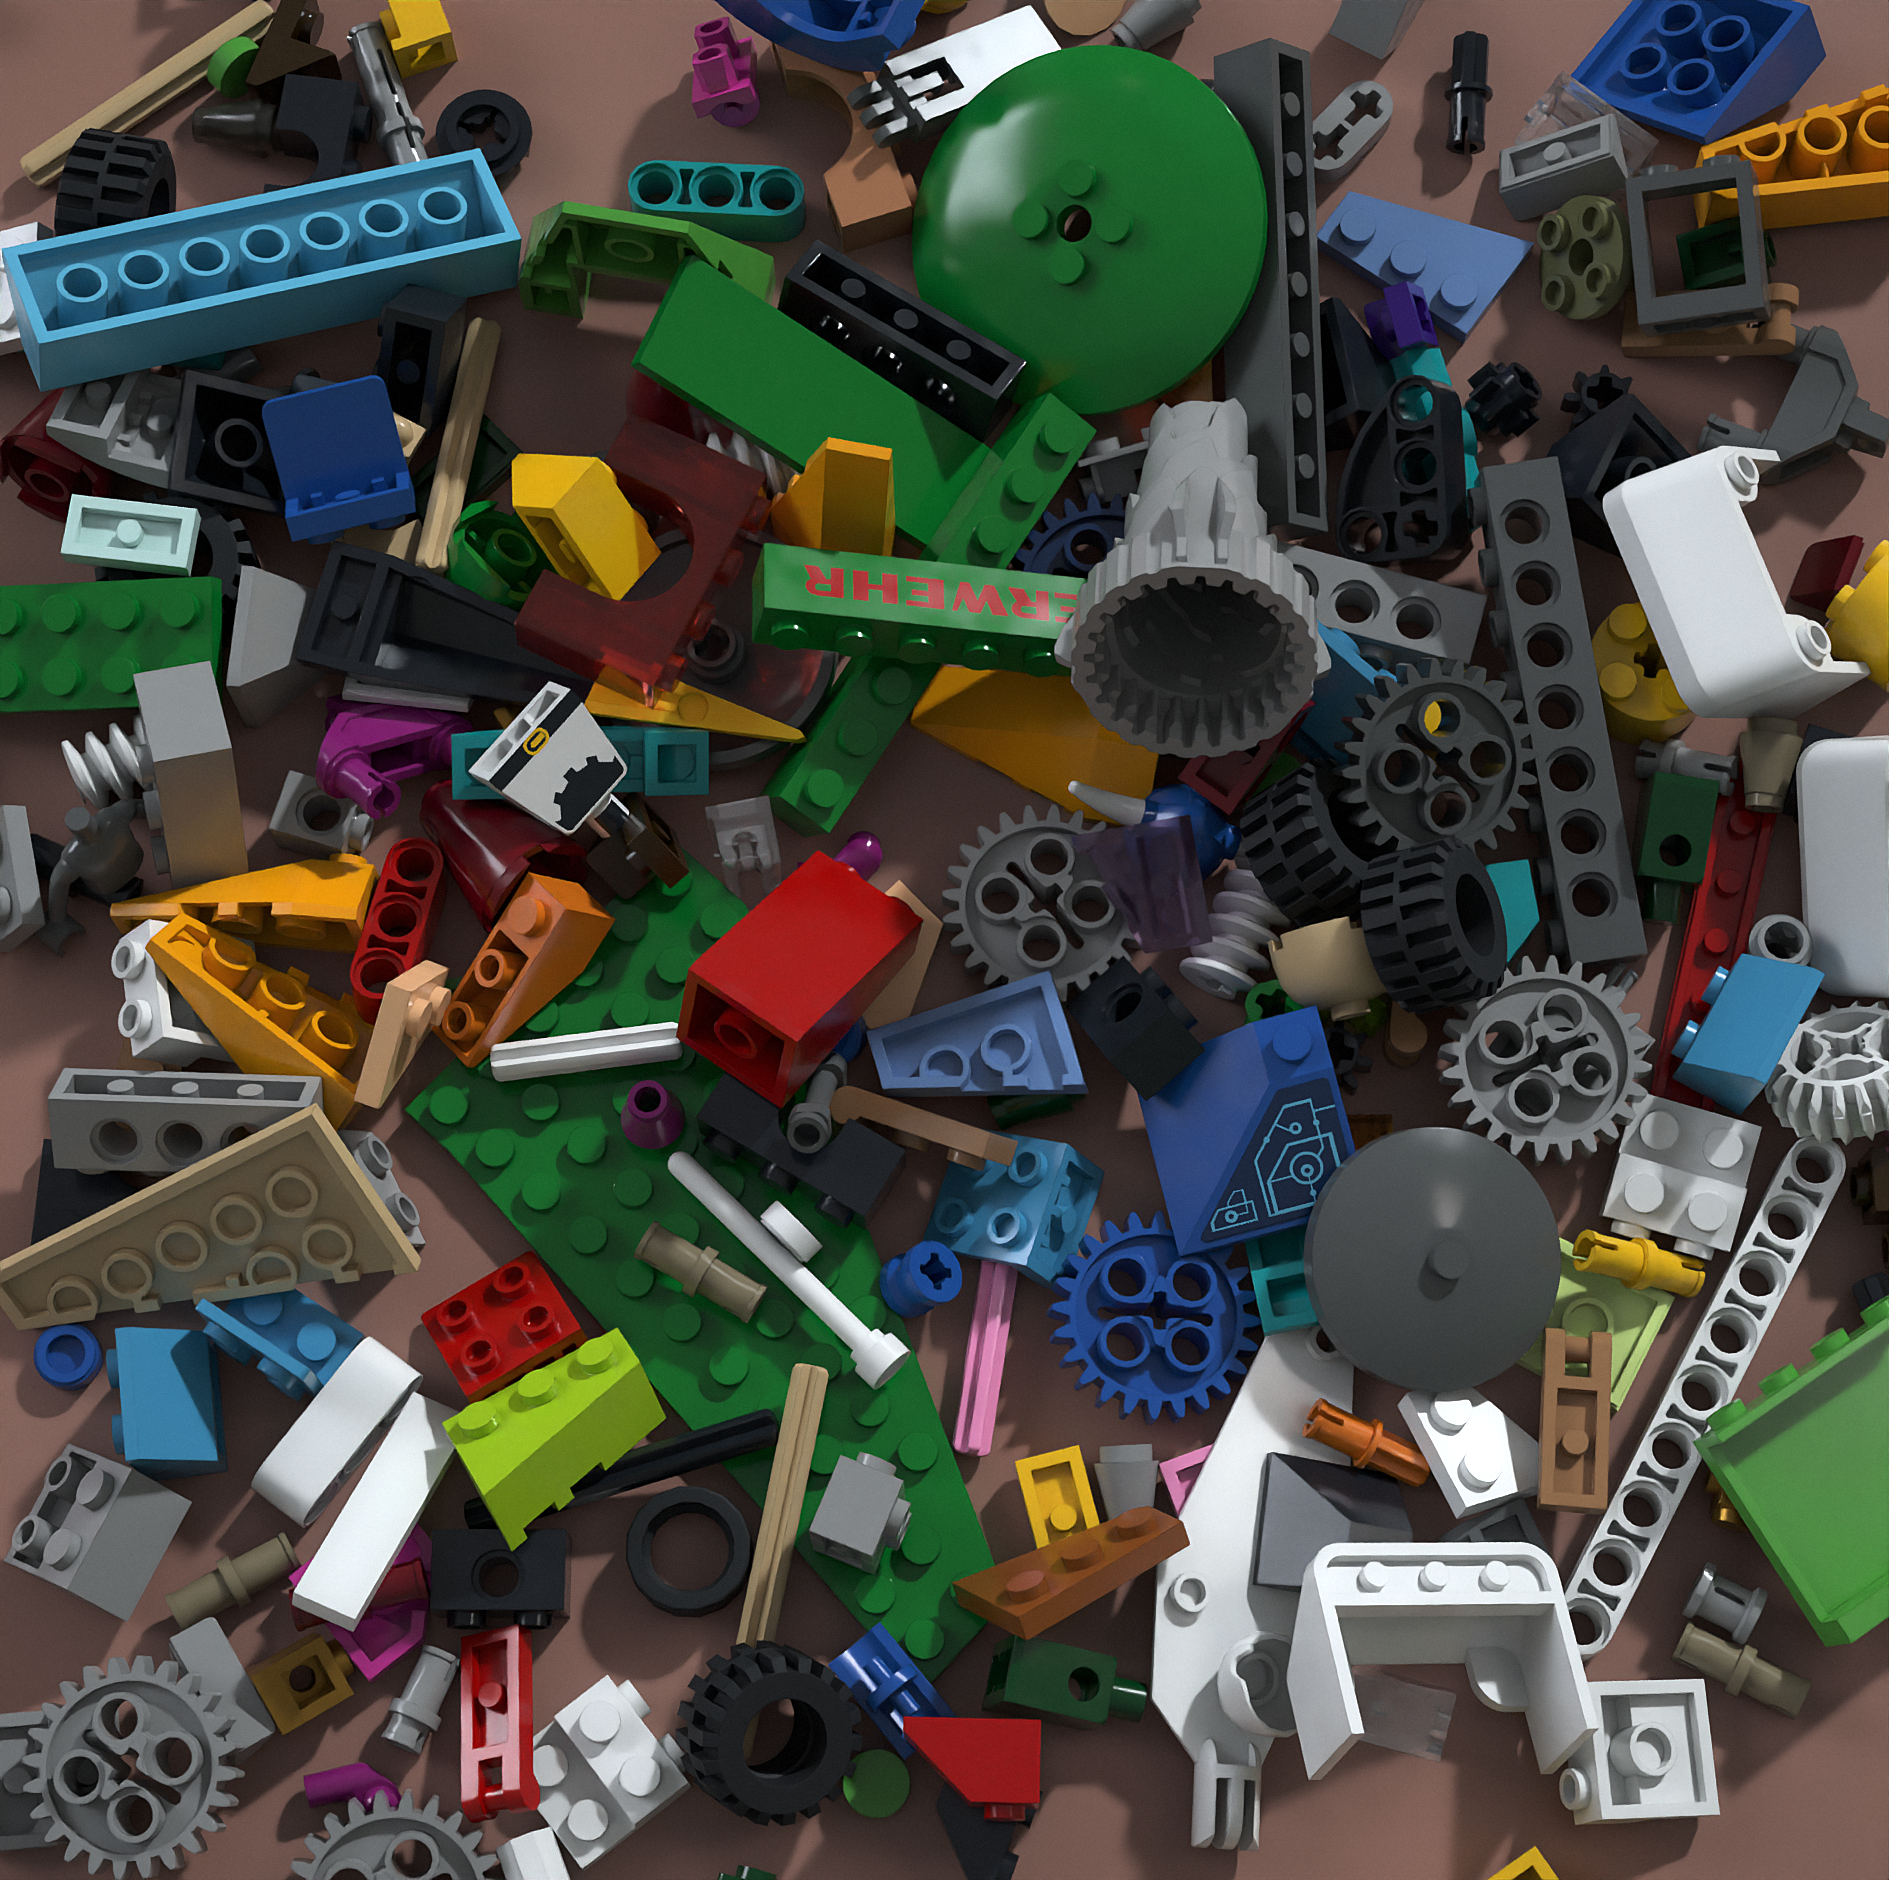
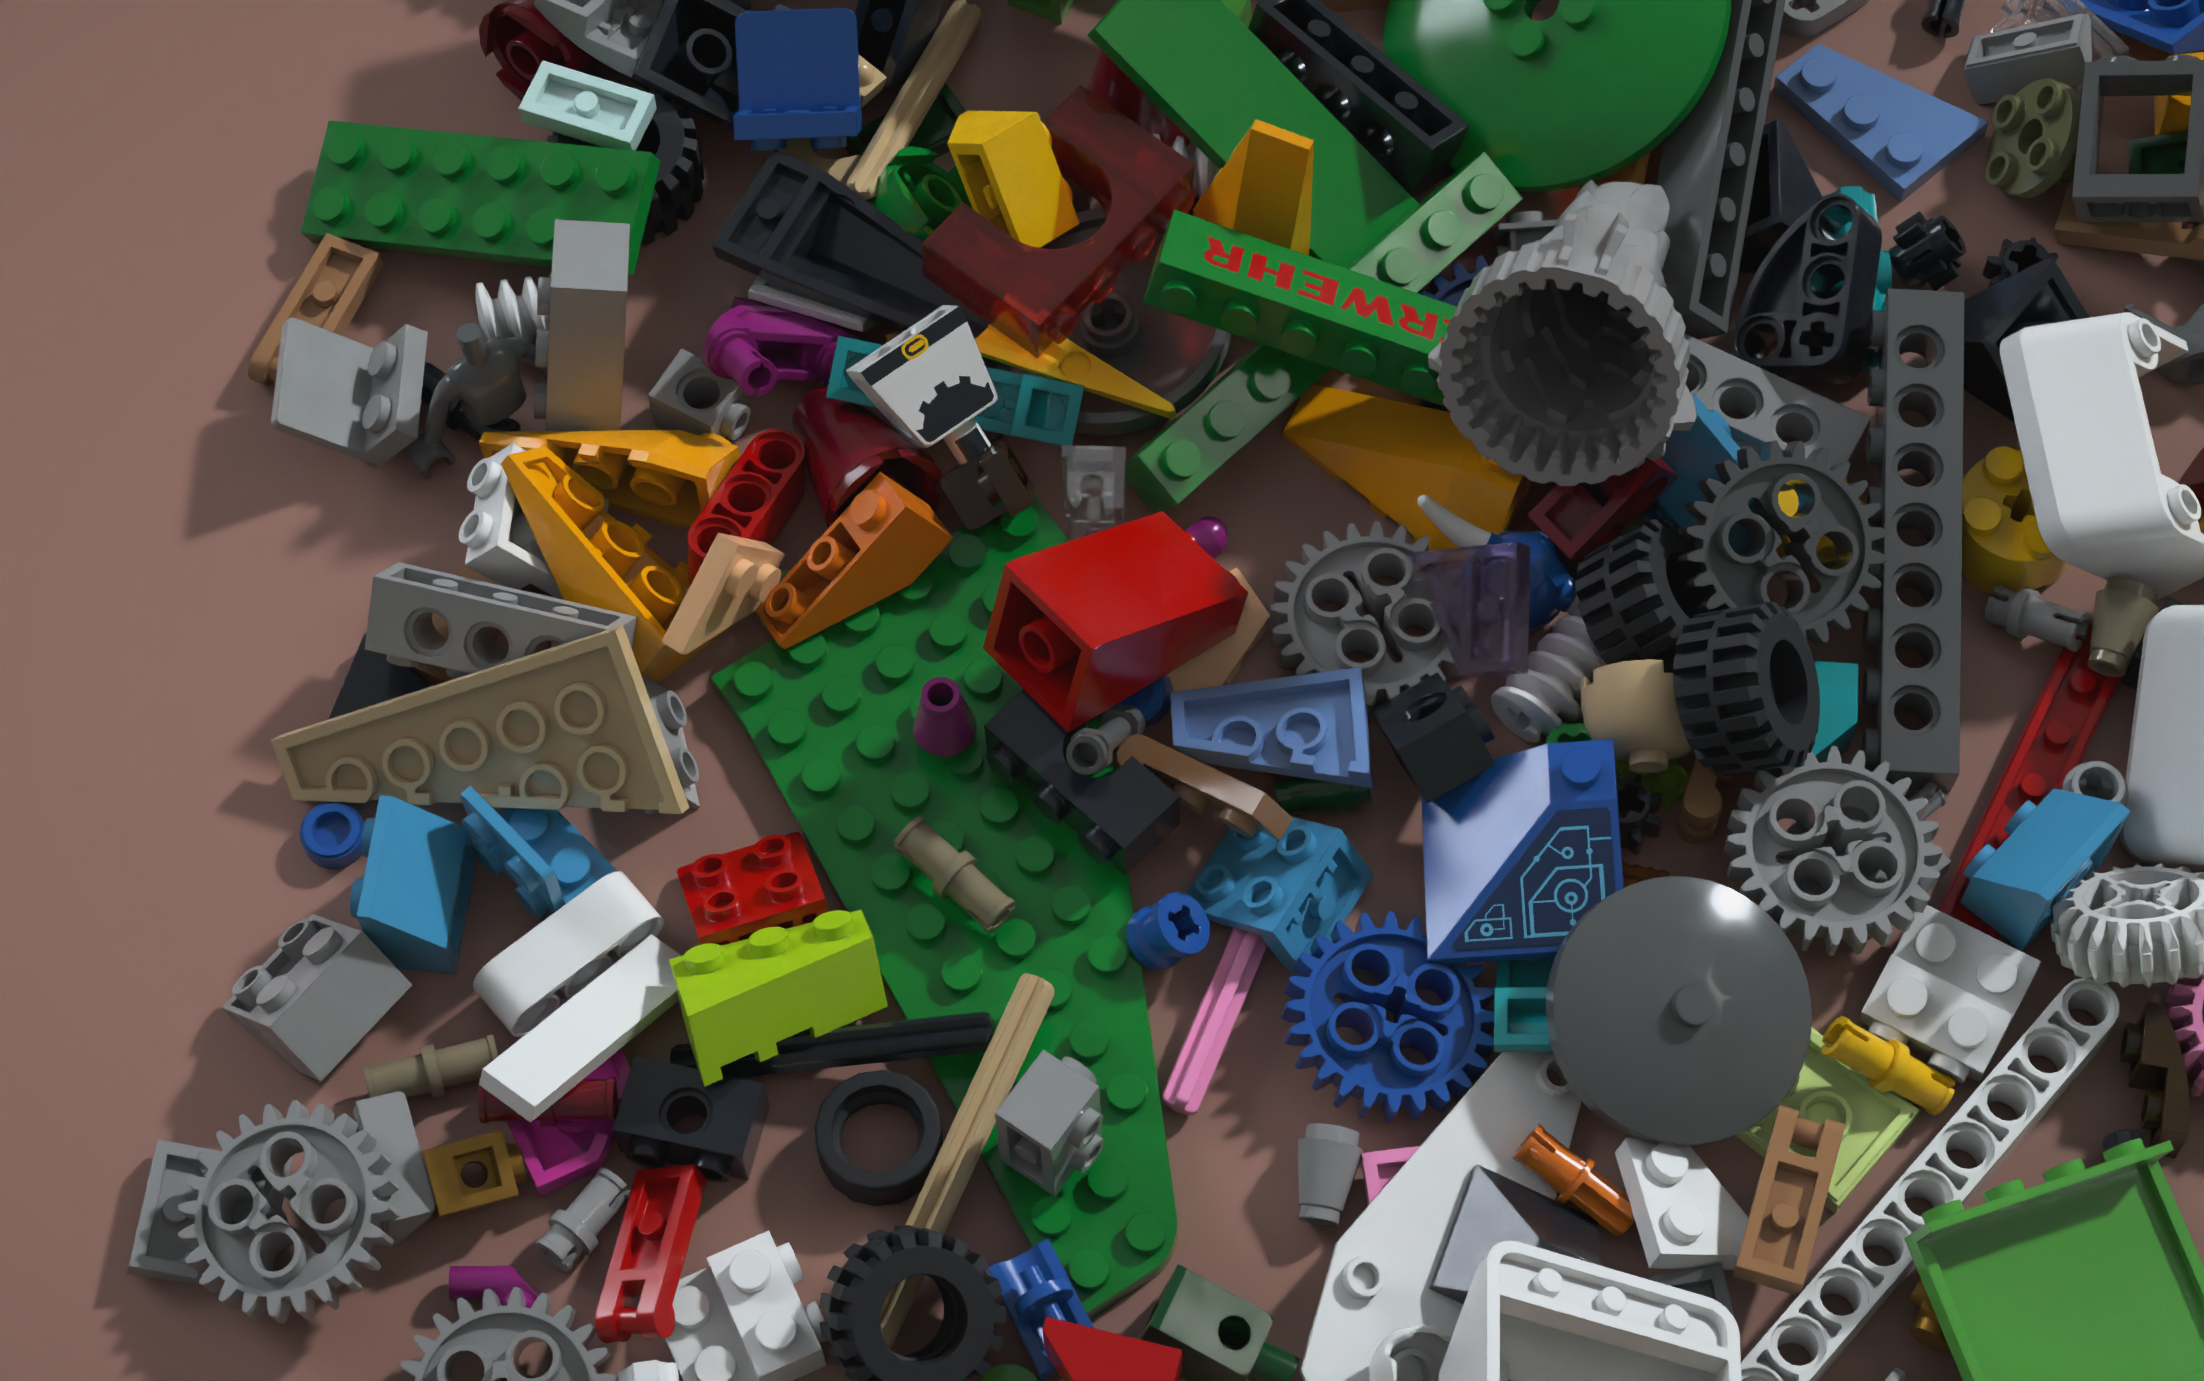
camera: 15 degrees right, 10 degrees down
(264, 645) = (678, 248): light grey slope -> none
(585, 1051) = (895, 654): white axle -> none
(790, 1232) = (1050, 855): white tile -> none
(876, 1354) = (1106, 987): white piece -> none
(1056, 1495) = (1255, 1187): yellow plate -> none
(1070, 1573) = (1250, 1226): dark orange wing -> none
(1400, 320) = (1843, 159): dark purple bracket -> none
(1675, 816) = (2006, 678): dark green torso -> none

